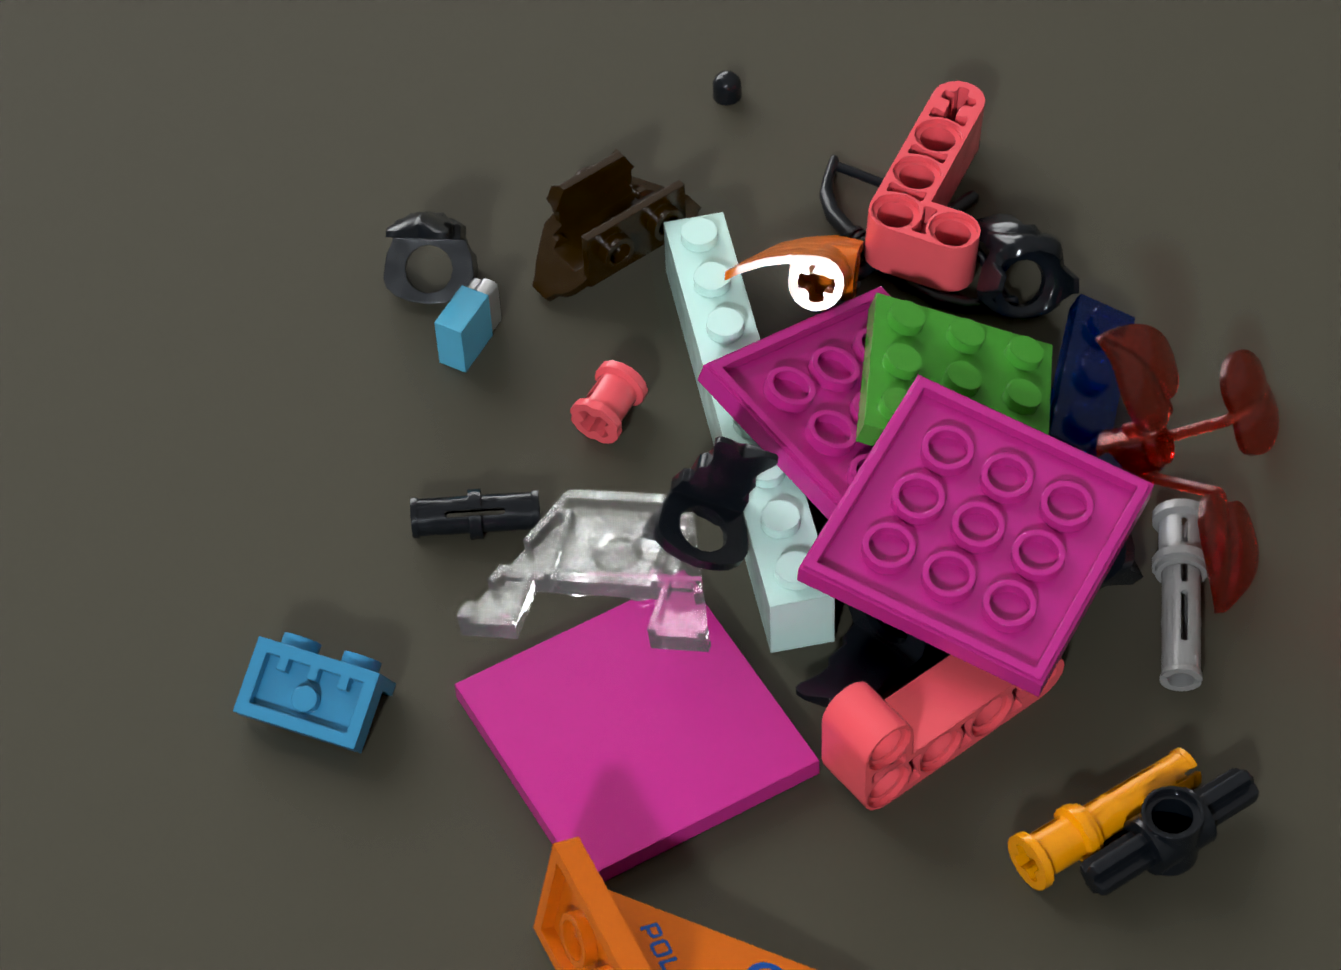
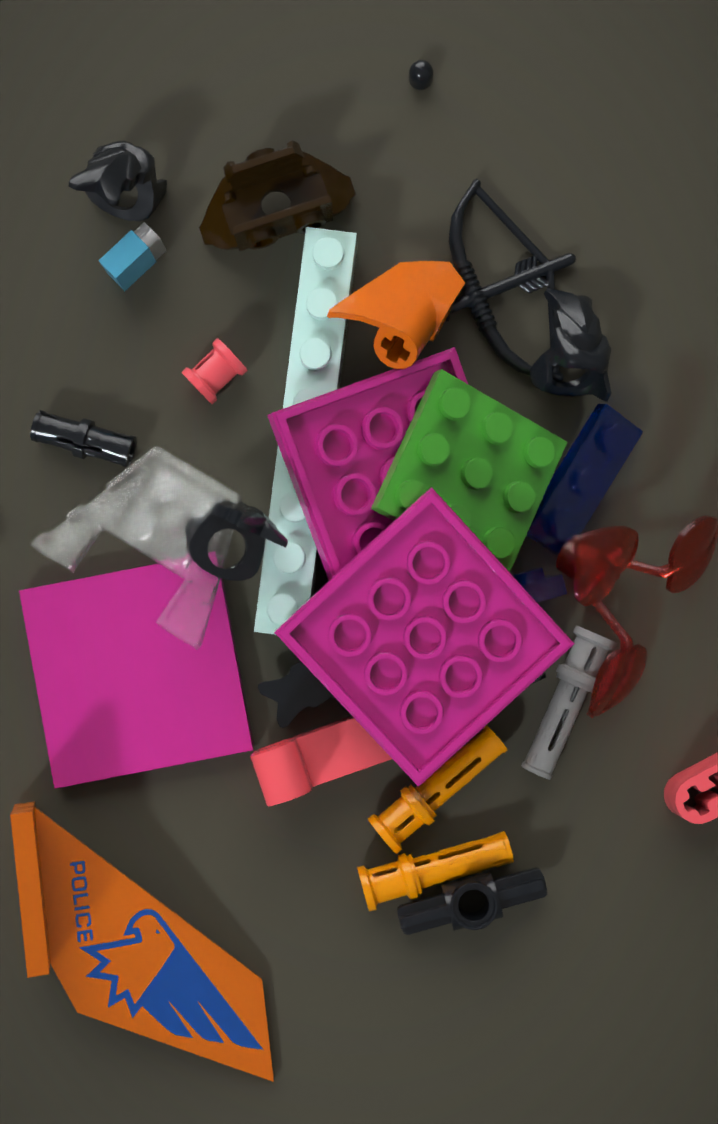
camera: 20 degrees right, 35 degrees up
(908, 217) = (539, 246): coral beam -> none
(1104, 678) = (418, 804): none -> light orange pin

